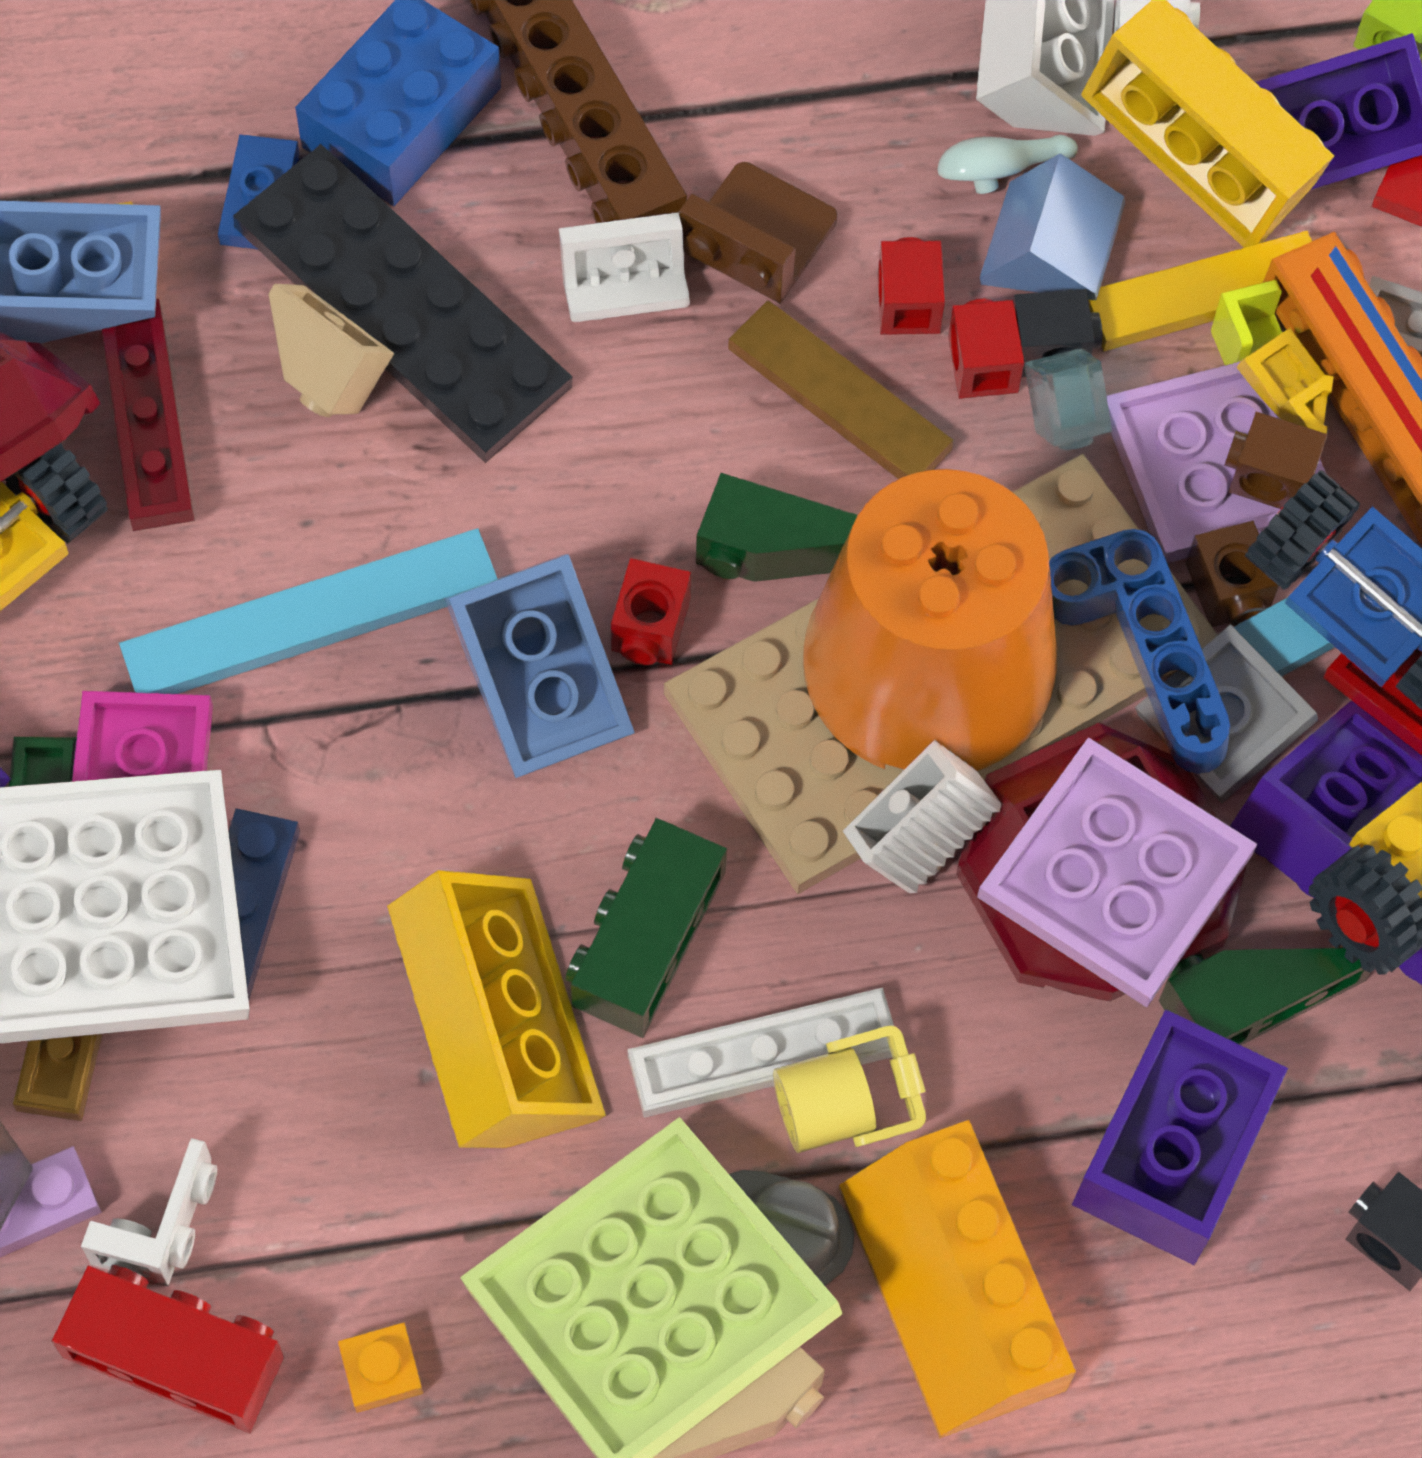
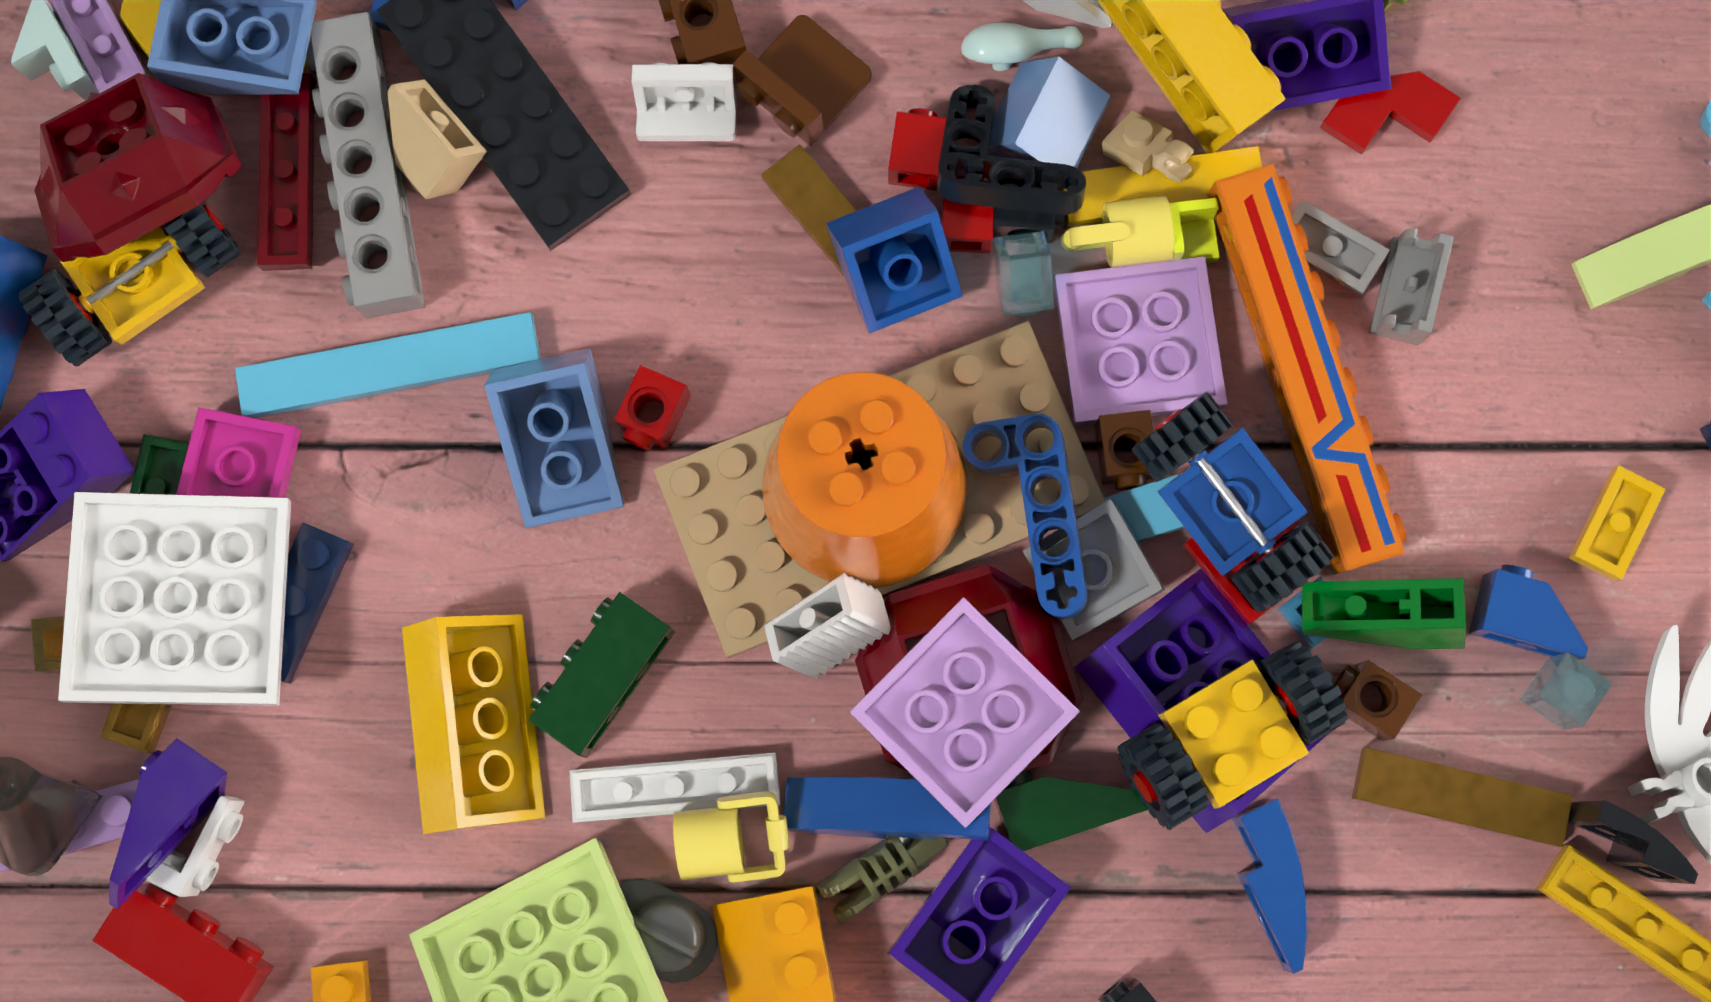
camera: 20 degrees right, 15 degrees up
(127, 1158) = (170, 801): none -> dark purple slope
(286, 528) = (397, 284): none -> light grey brick
(768, 533) = (762, 355): dark green slope -> none
(913, 399) = (895, 259): none -> blue slope
(985, 292) = (976, 164): none -> black beam
(1026, 1020) = (873, 809): none -> blue slope
(1048, 1100) = (881, 870): none -> olive hinge
(1175, 245) = (1145, 144): none -> tan plate
(1179, 336) = (1130, 232): none -> light yellow piece
(1273, 459) = (1178, 361): reddish brown brick -> none
(1289, 381) = (1209, 291): yellow slope -> none

